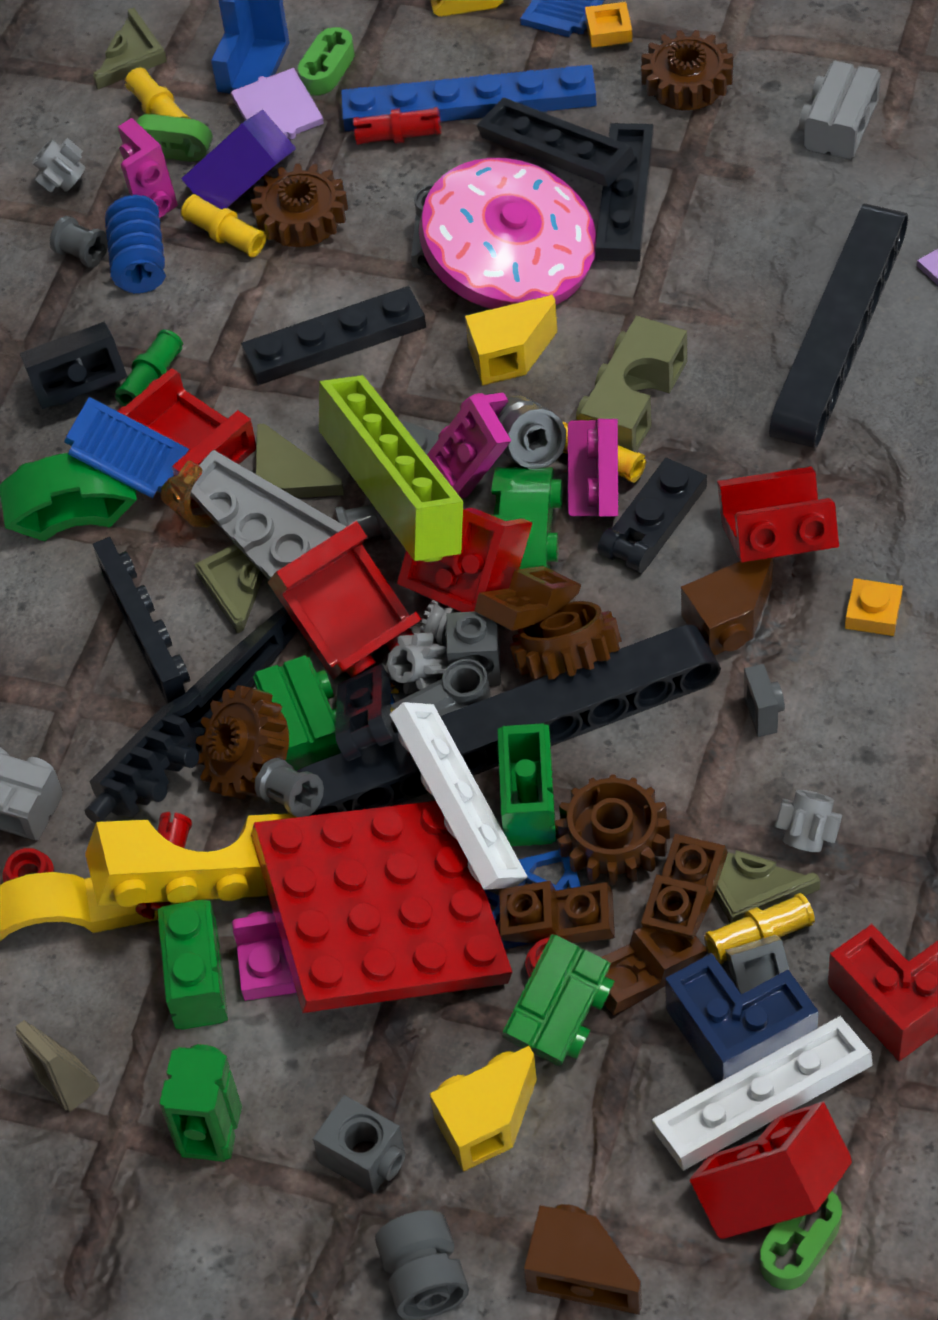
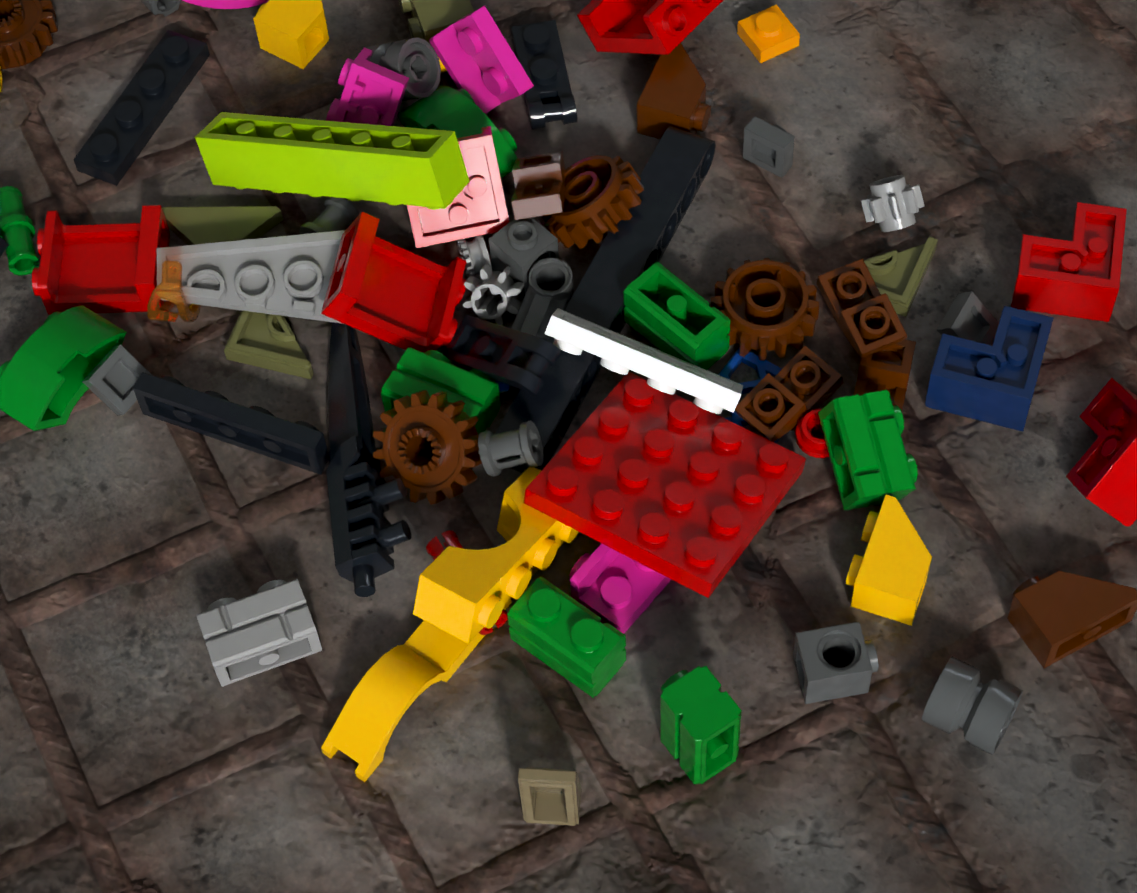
camera: 45 degrees left, 5 degrees up
(25, 862) = (339, 667): red plate -> none
(98, 525) = (114, 379): none -> dark grey plate
(123, 448) = (77, 297): blue window -> none
(759, 924) = (934, 300): yellow pin -> none
(762, 1092) = (1057, 408): white plate -> none

